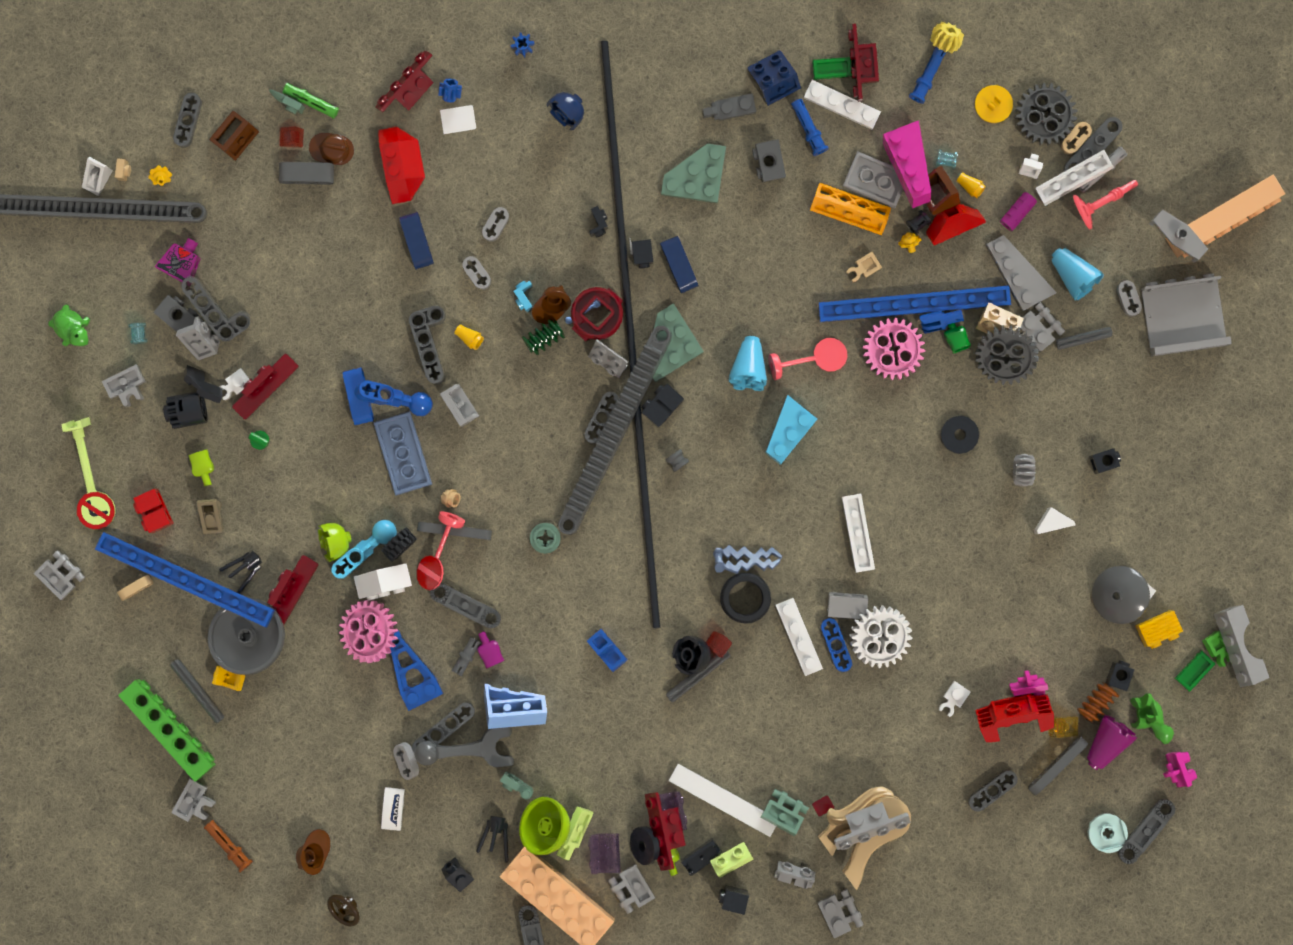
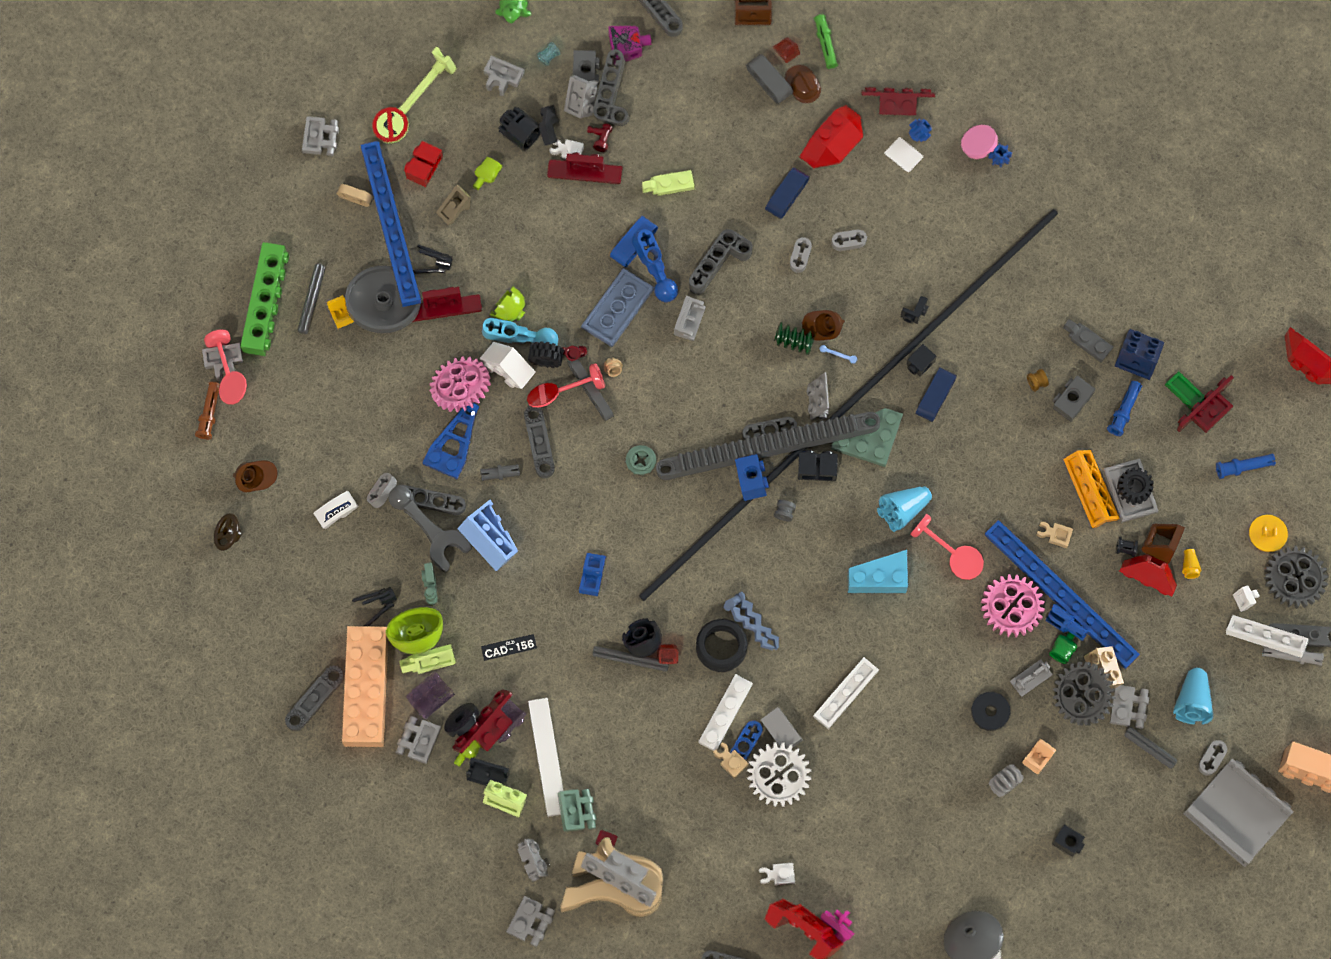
camera: 45 degrees right, 15 degrees down
(222, 812) = (234, 383): none -> coral piece
(243, 343) = (601, 145): none -> dark red piece
(259, 440) = (540, 197): green plate -> none
(291, 105) = (810, 30): sand green plate -> none
(331, 326) = (669, 183): none -> yellowish green hinge
(415, 520) = (574, 353): none -> dark red piece
(457, 874) = (322, 597): black bracket -> none
(470, 337) = (747, 286): yellow cone -> none
(489, 651) = (518, 487): magenta piece -> none
(498, 51) = (979, 141): none -> bright pink tile
(522, 300) = (814, 294): medium azure bracket -> none
(567, 109) = (980, 222): dark blue cylinder -> none
(583, 326) = (845, 376): dark red piece -> none
(612, 760) = (508, 647): none -> black sticker
(620, 460) = (748, 467): none -> blue brick
(697, 175) = (1015, 356): sand green plate -> none
(731, 175) = (1037, 380): none -> pearl gold wheel
(733, 899) = (474, 822): black piece -> none
(842, 104) = (1164, 420): white plate -> none
(844, 664) = (733, 762): none -> tan plate
(875, 186) = (1131, 496): none -> black tyre
(908, 159) = (1167, 498): dark pink wedge -> none
(909, 241) = (1106, 552): yellow plant -> none
(946, 159) = (1194, 529): clear light blue bush -> none
(947, 37) = (1285, 454): light yellow gear -> none
(959, 382) = (1031, 677): none -> light grey hinge
(1018, 211) = (1202, 616): magenta axle -> none
(1021, 277) = (1155, 658): light grey wing -> none
(1024, 429) = (1039, 756): none -> light nougat bracket
(1052, 521) = (985, 838): white slope -> none
(1079, 140) = (1299, 611): tan beam -> none
(1087, 209) = (1249, 664): coral dish -> none
(1179, 235) = (1294, 748): light grey piece -> none

